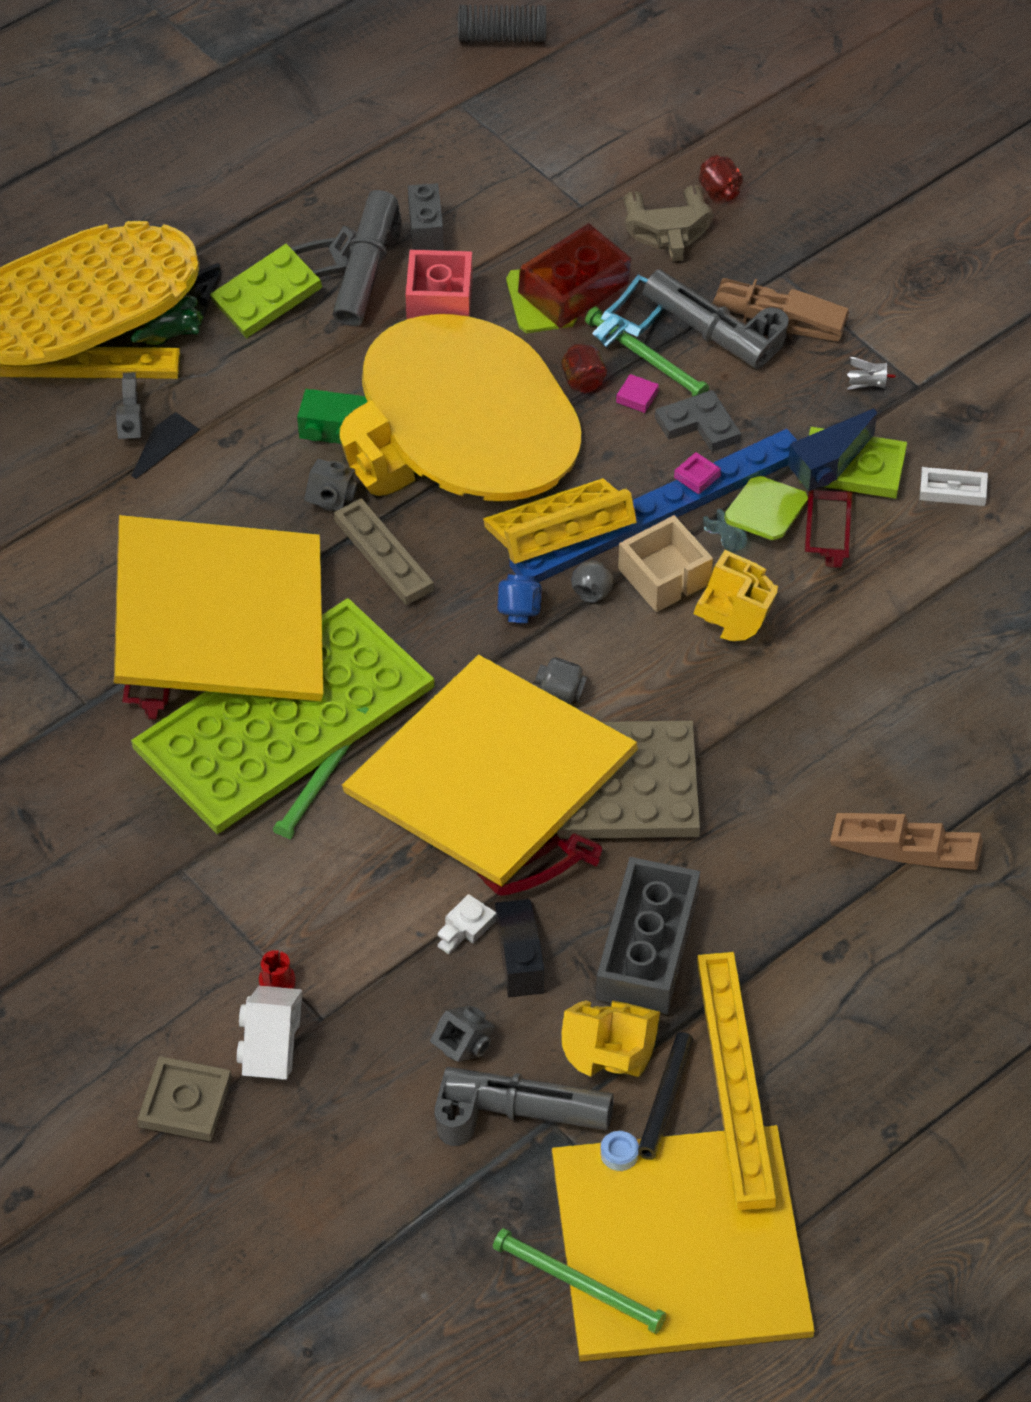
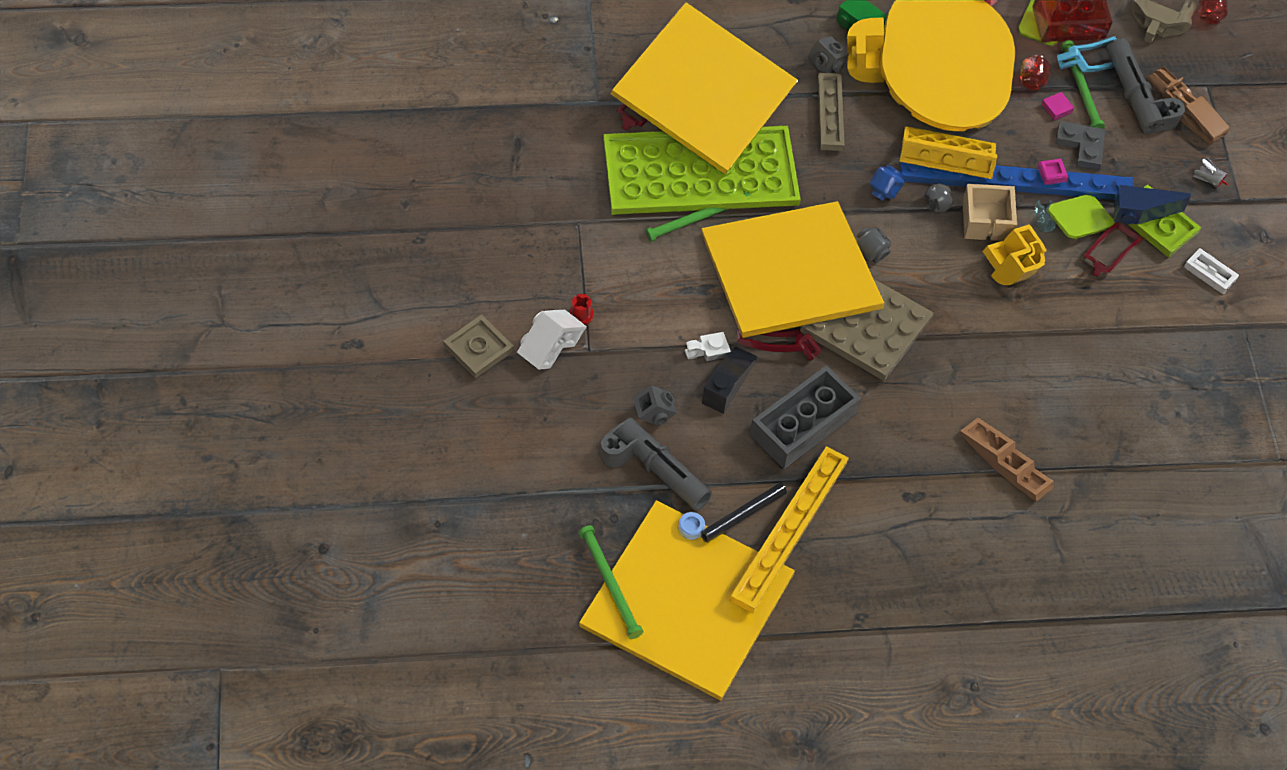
camera: 30 degrees right, 5 degrees up
(609, 1037) = (735, 459): yellow brick -> none

